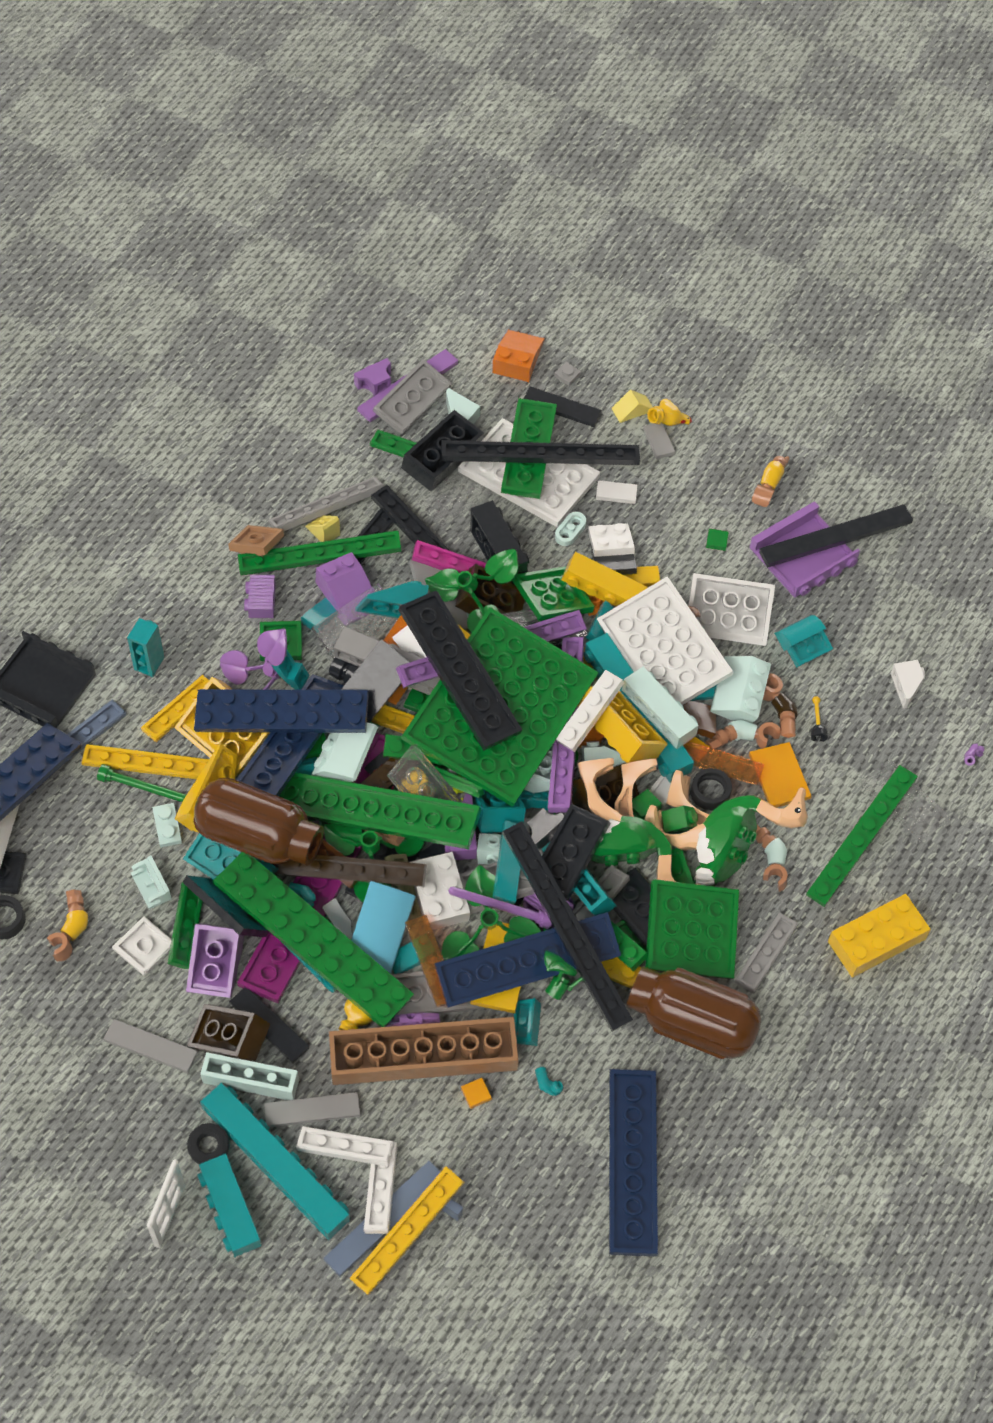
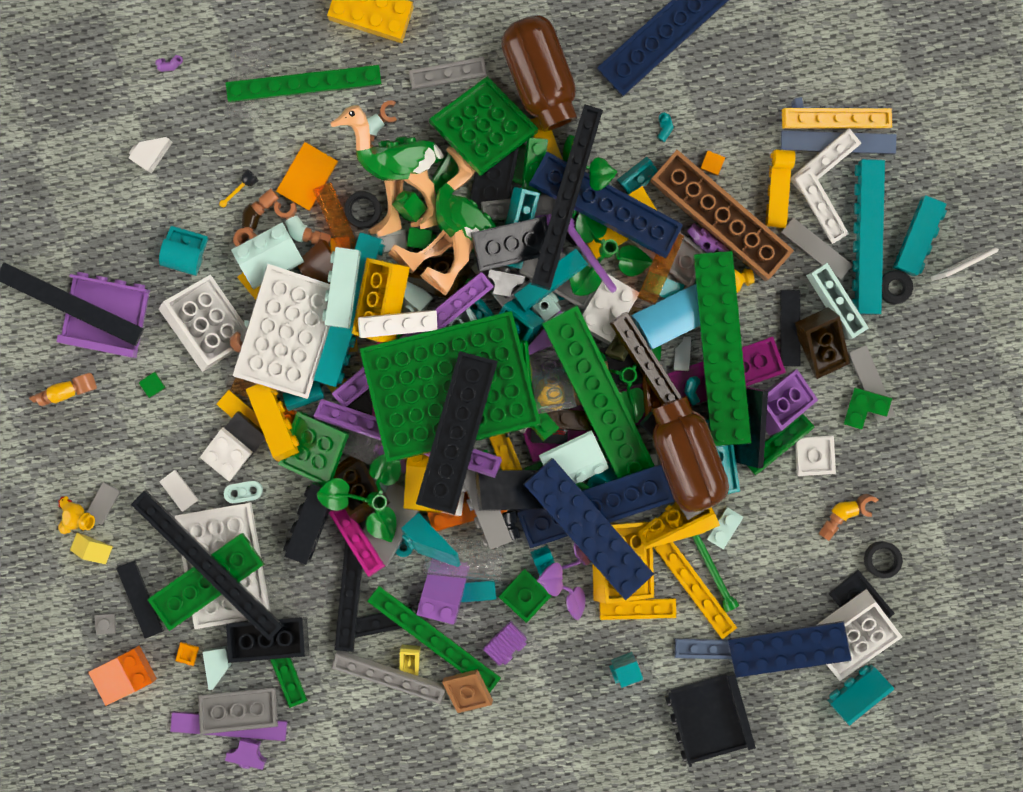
camera: 125 degrees left, 30 degrees up
(142, 1020) = (864, 402): none -> green plate
(150, 883) = (773, 494): light aqua hinge -> none
(397, 1124) = (779, 188): none -> yellow beam
(489, 402) = (187, 653): none -> light orange tile

